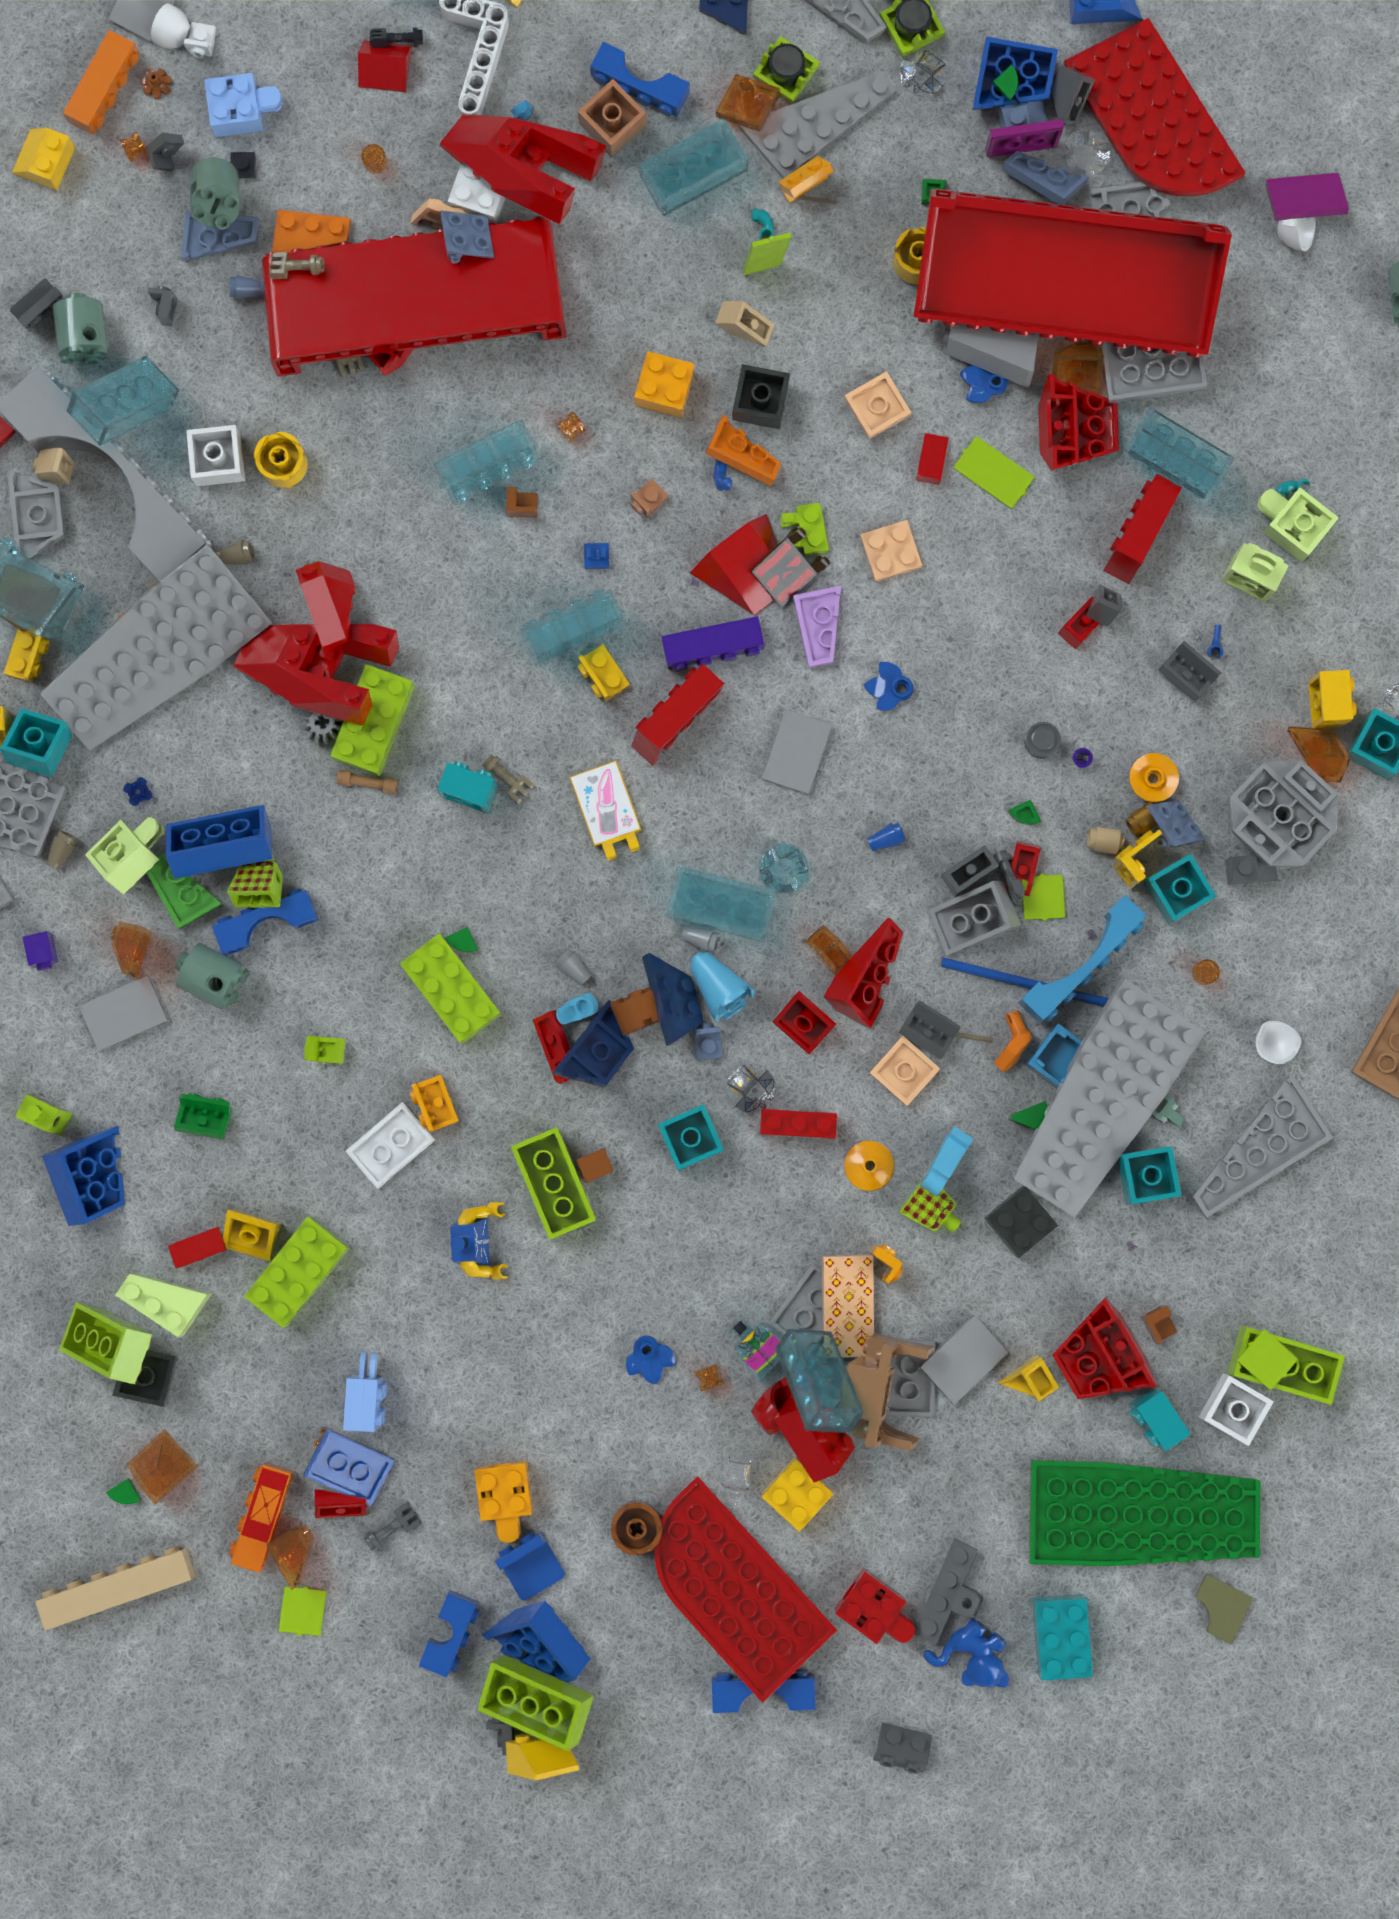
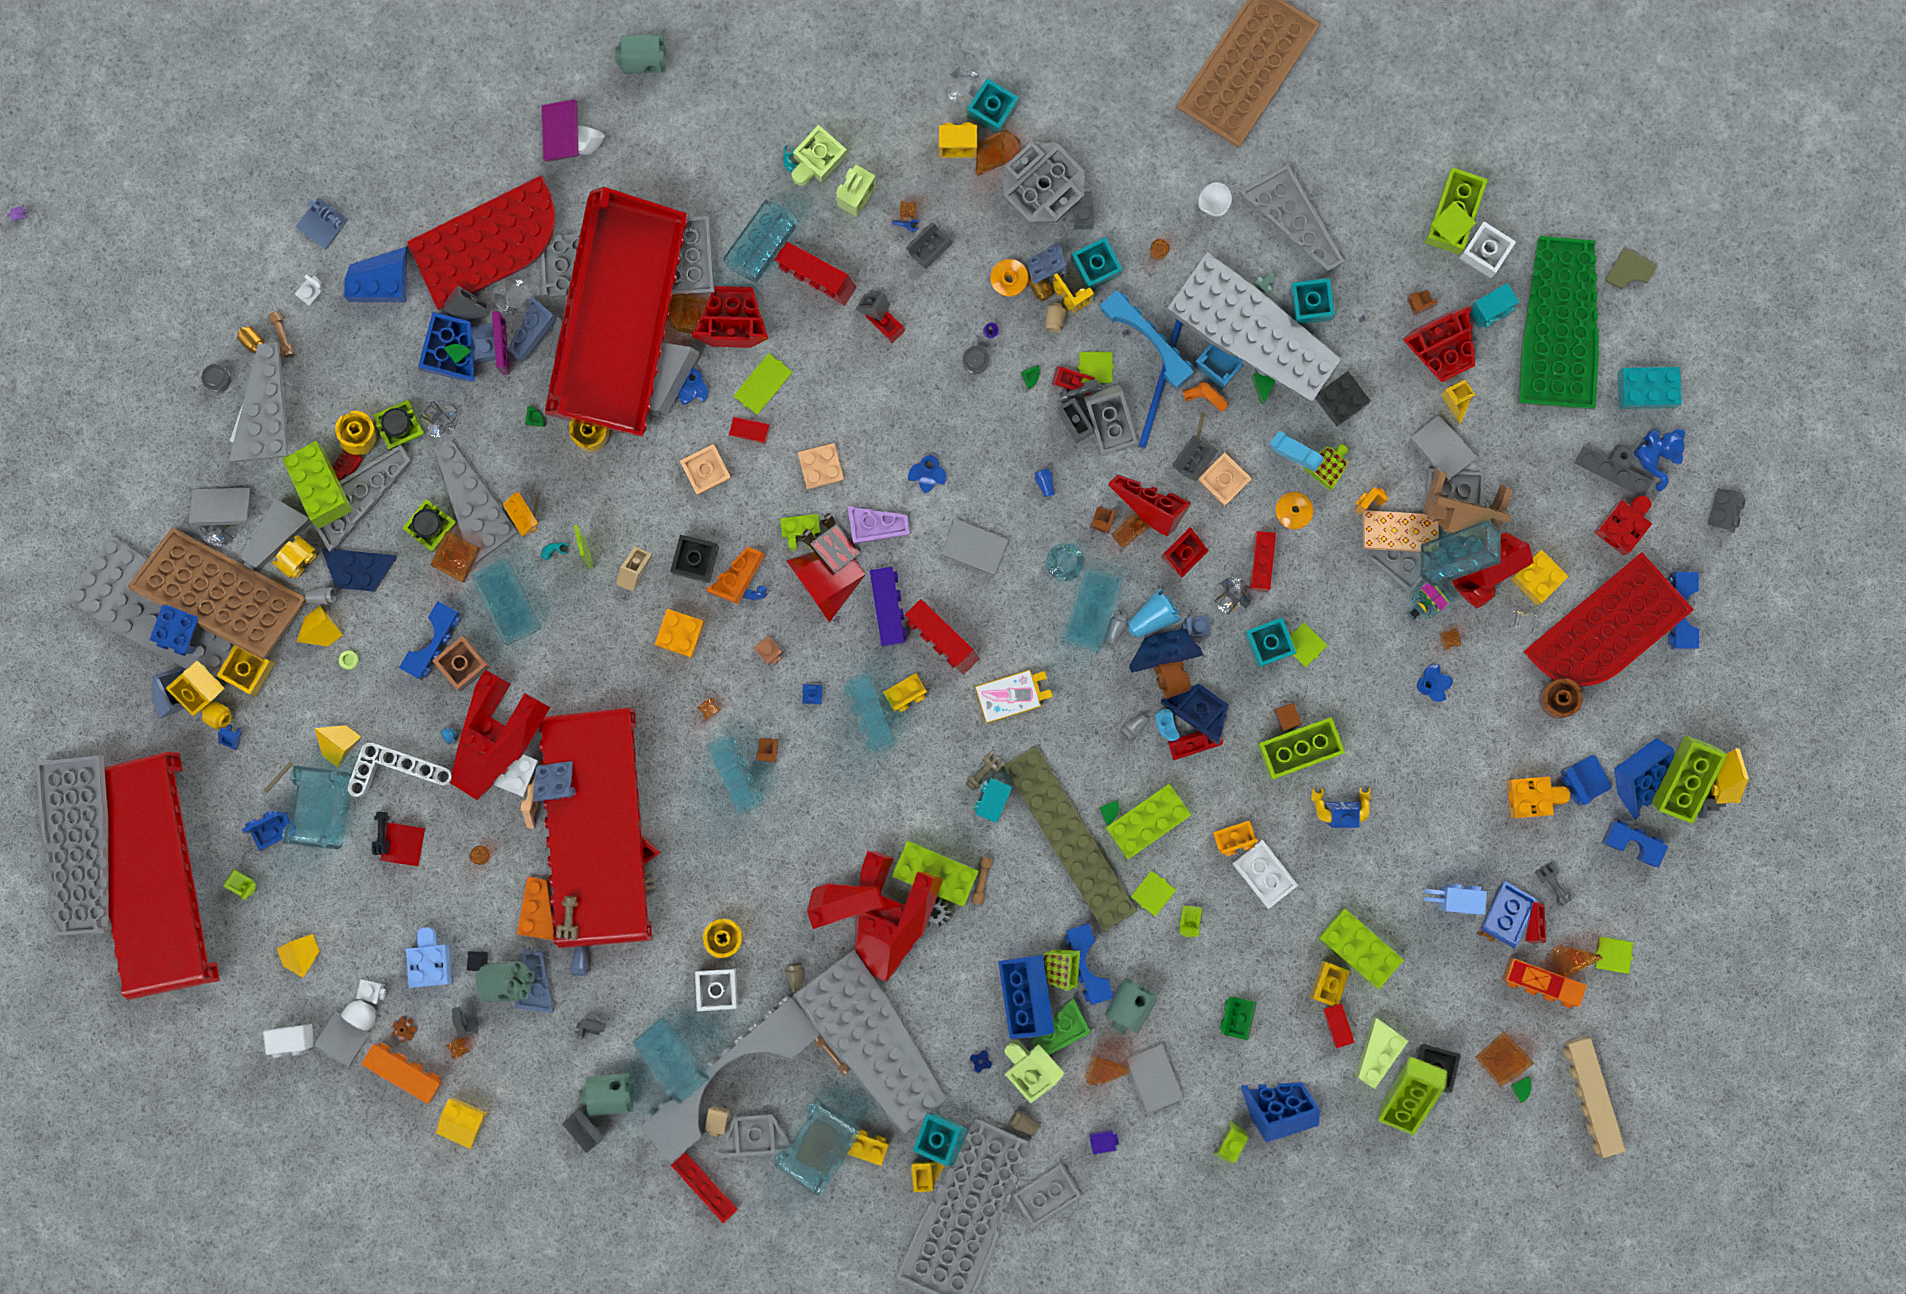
camera: 90 degrees left, 0 degrees up
(360, 1002) = (1153, 893): none -> lime piece
(425, 891) = (1070, 838): none -> olive plate
(692, 1187) = (1306, 644): none -> lime piece
(842, 914) = (1103, 520): none -> dark orange panel
(1235, 642) = (907, 209): none -> clear orange wheel

